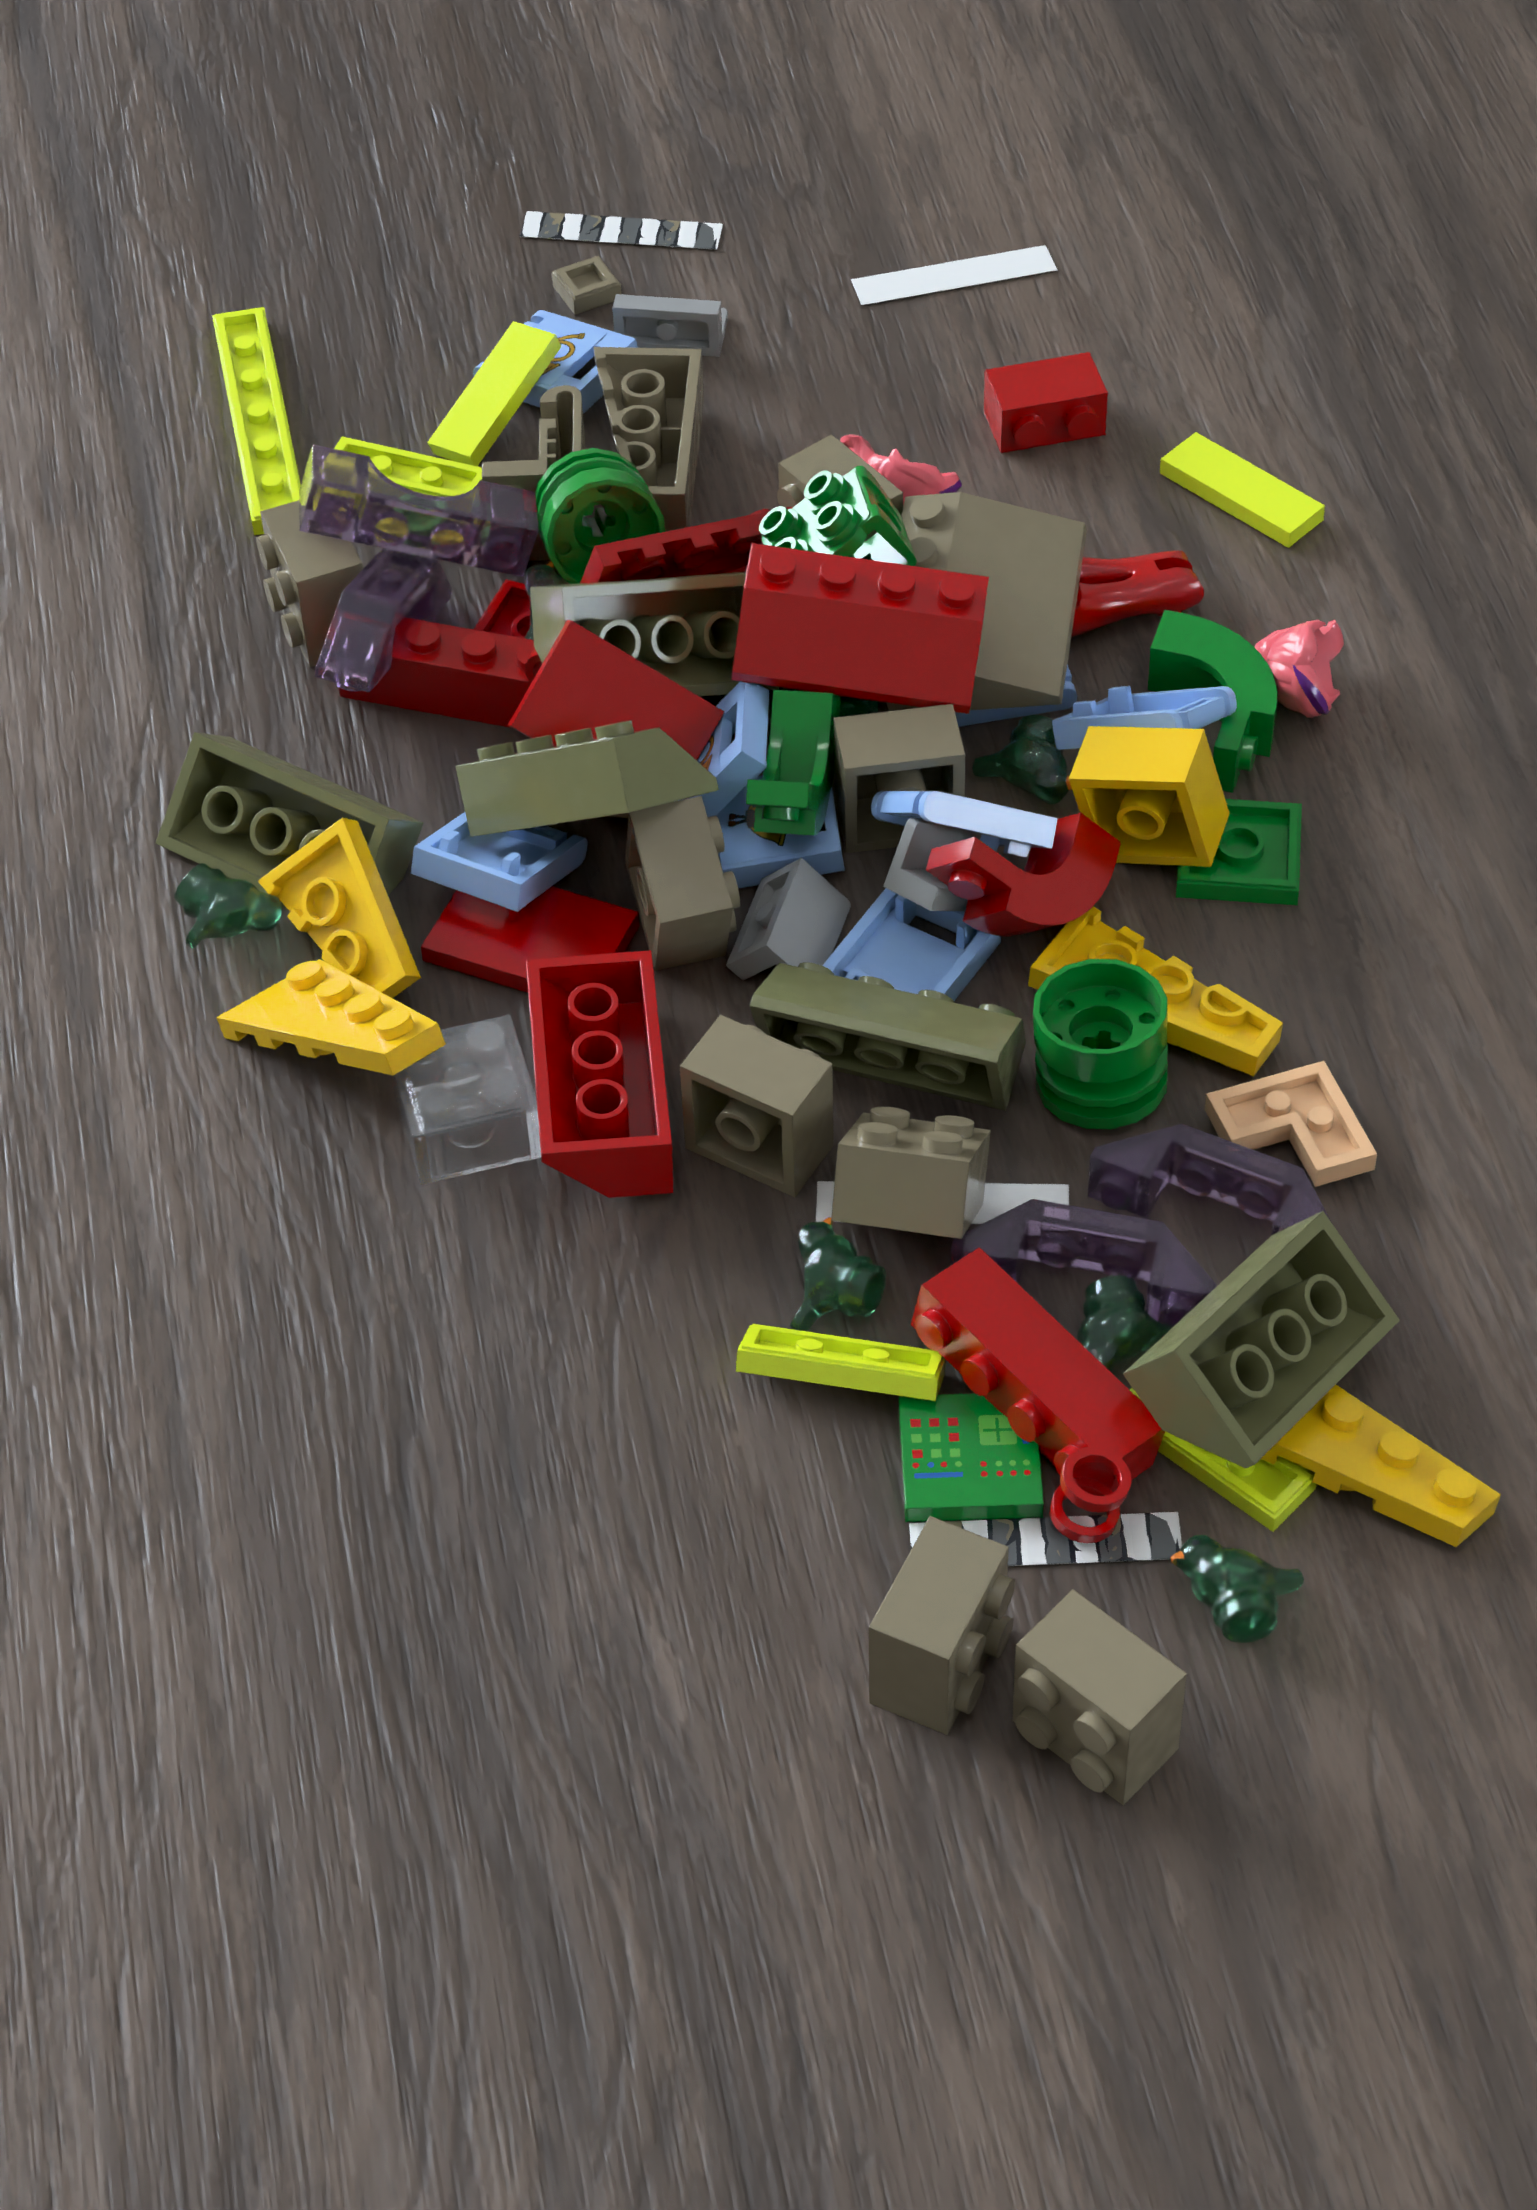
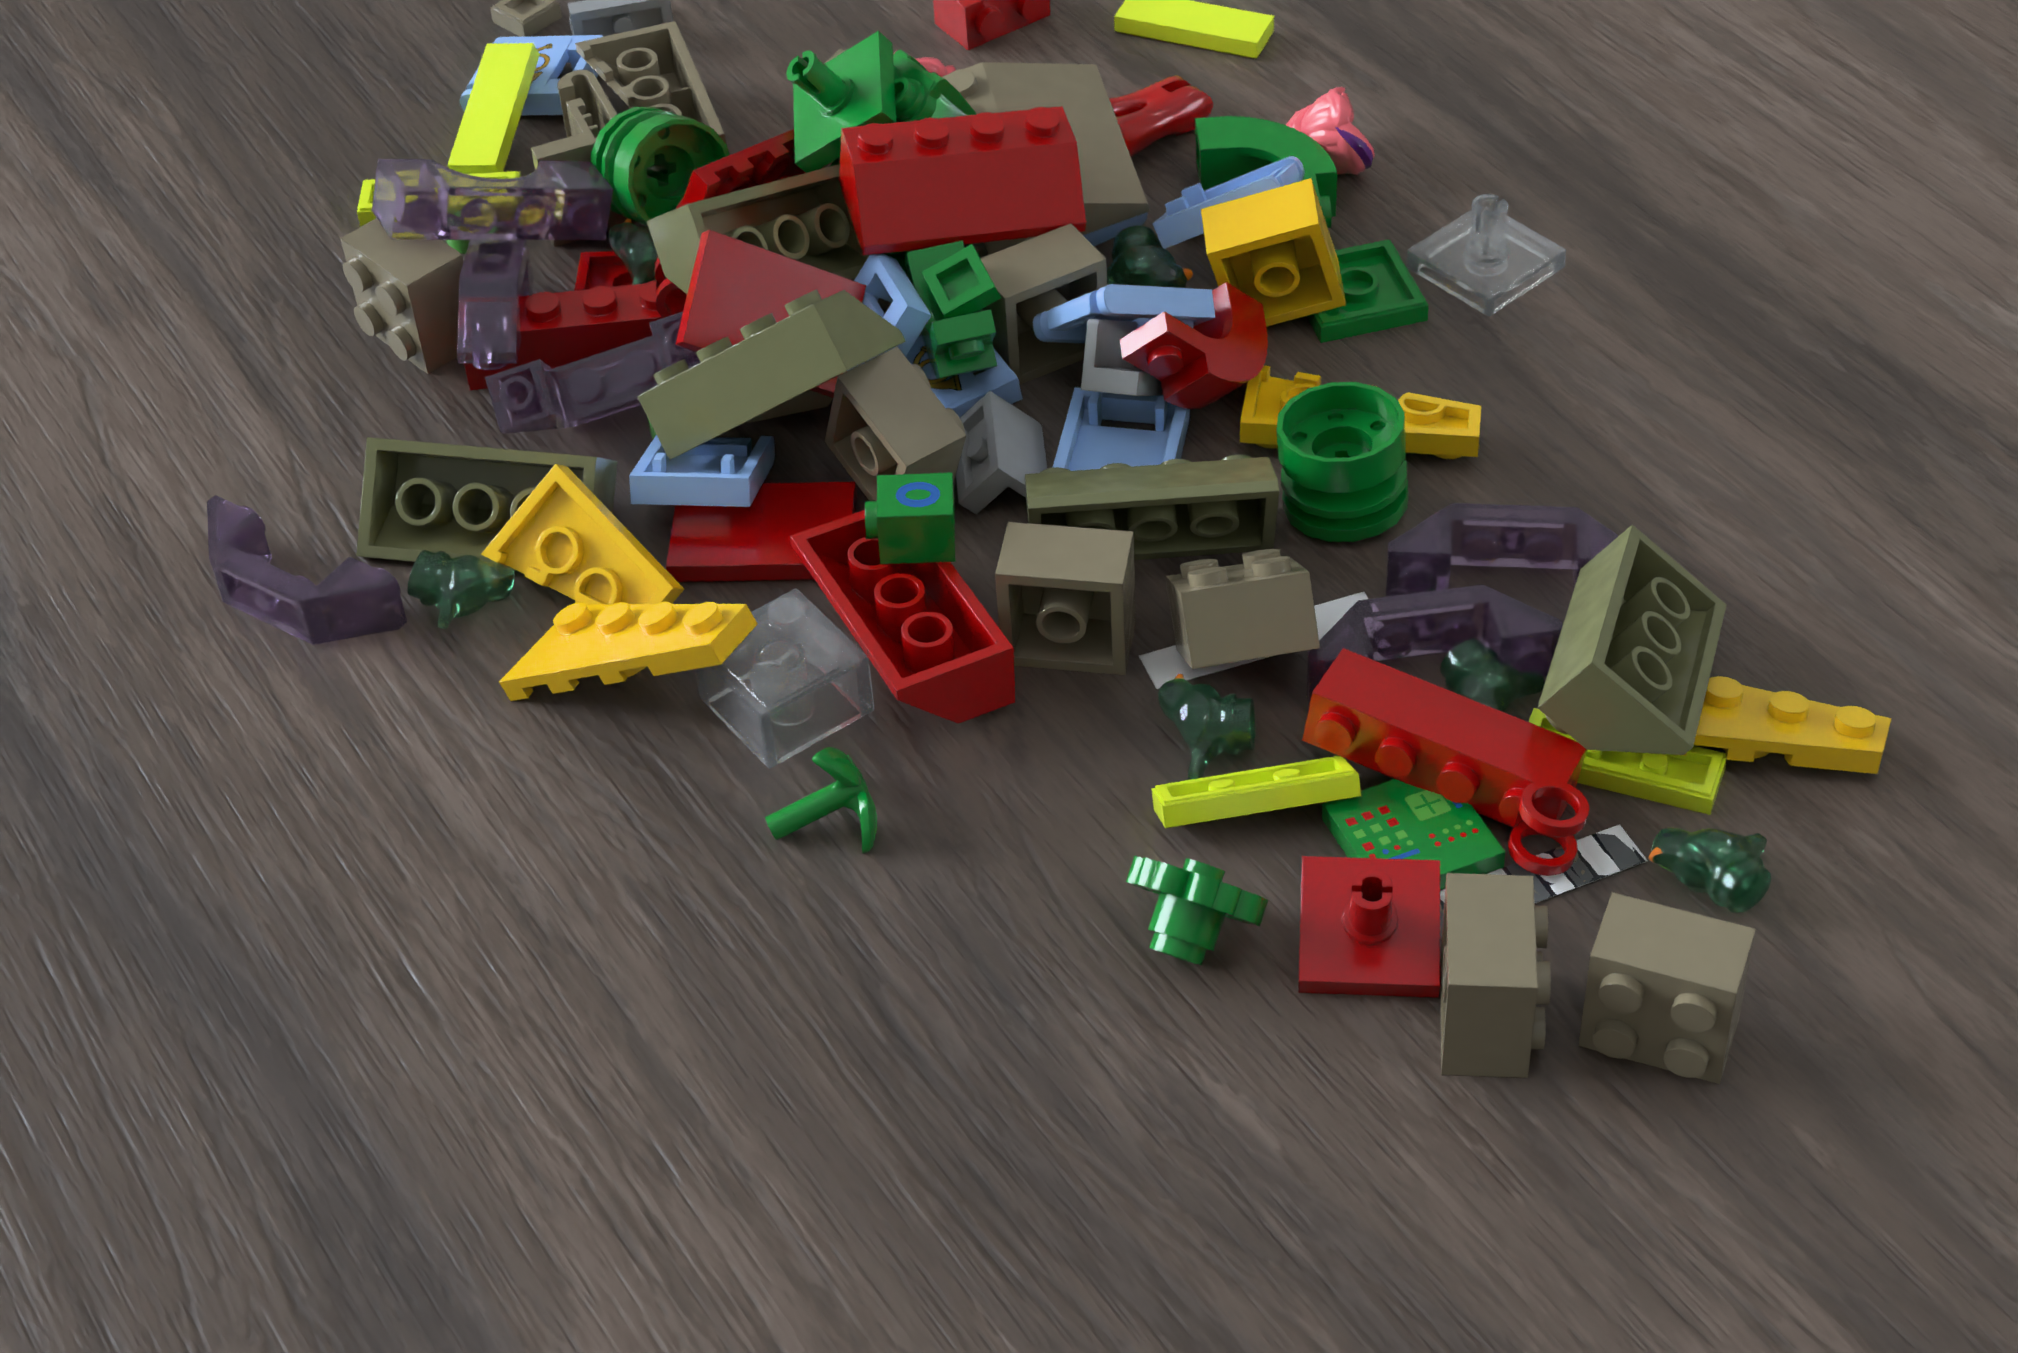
camera: 20 degrees left, 5 degrees down
(112, 894) = (344, 605): none -> clear purple slope
(257, 411) = (272, 187): neon yellow tile -> none
(422, 733) = (587, 389): none -> clear purple slope
(466, 1230) = (847, 792): none -> green plant
(638, 981) = (913, 518): none -> green brick
(712, 1459) = (1192, 906): none -> green plant
(778, 503) = (840, 94): none -> green tile
(808, 742) = (961, 283): none -> green plate
(863, 1527) = (1370, 926): none -> red tile
(1301, 1108) = (1540, 469): light nougat plate -> none
(1391, 854) = (1486, 256): none -> clear tile

